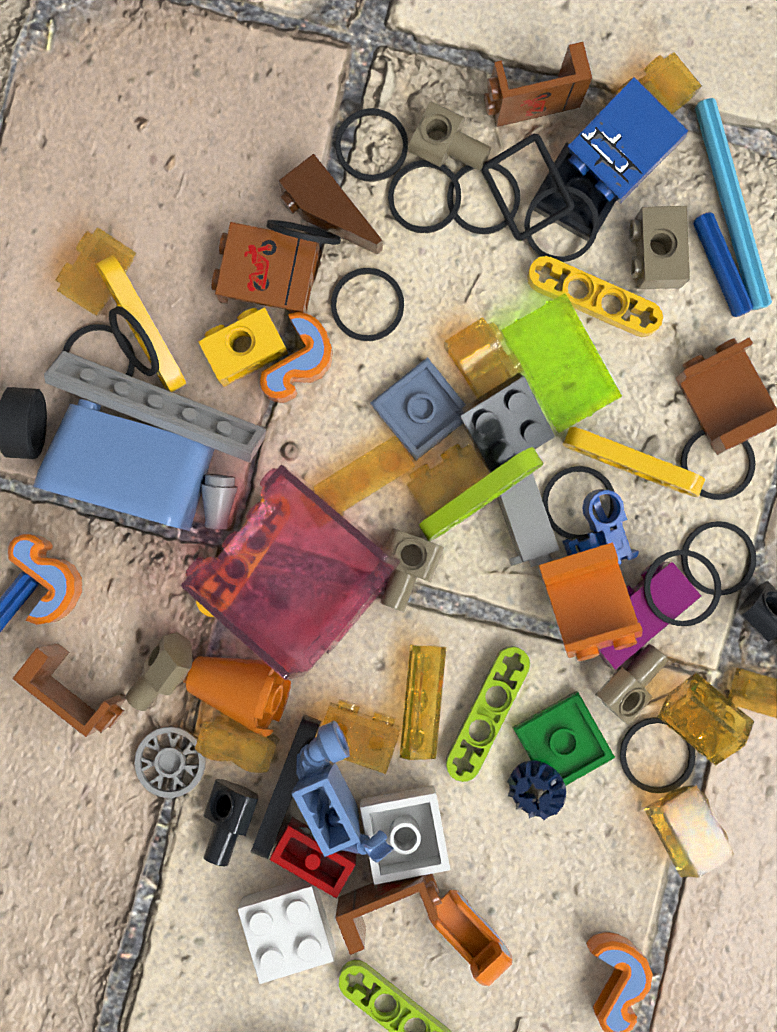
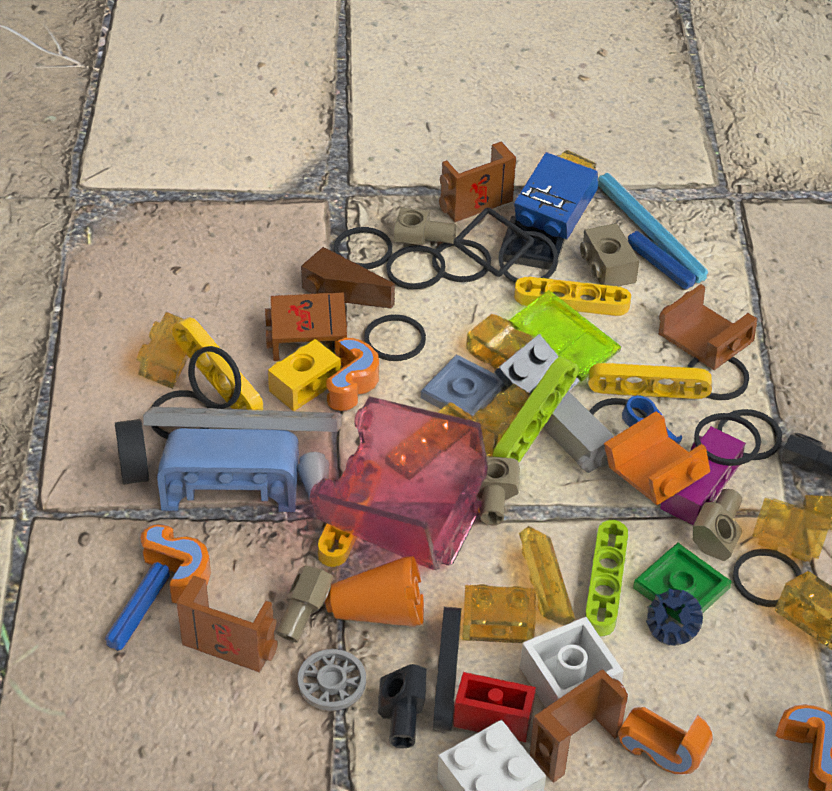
camera: 15 degrees left, 40 degrees down
(228, 740) = (392, 640): clear yellow brick -> none
(281, 227) = (356, 285): black piece -> none
(328, 800) = (490, 640): medium blue torso -> none

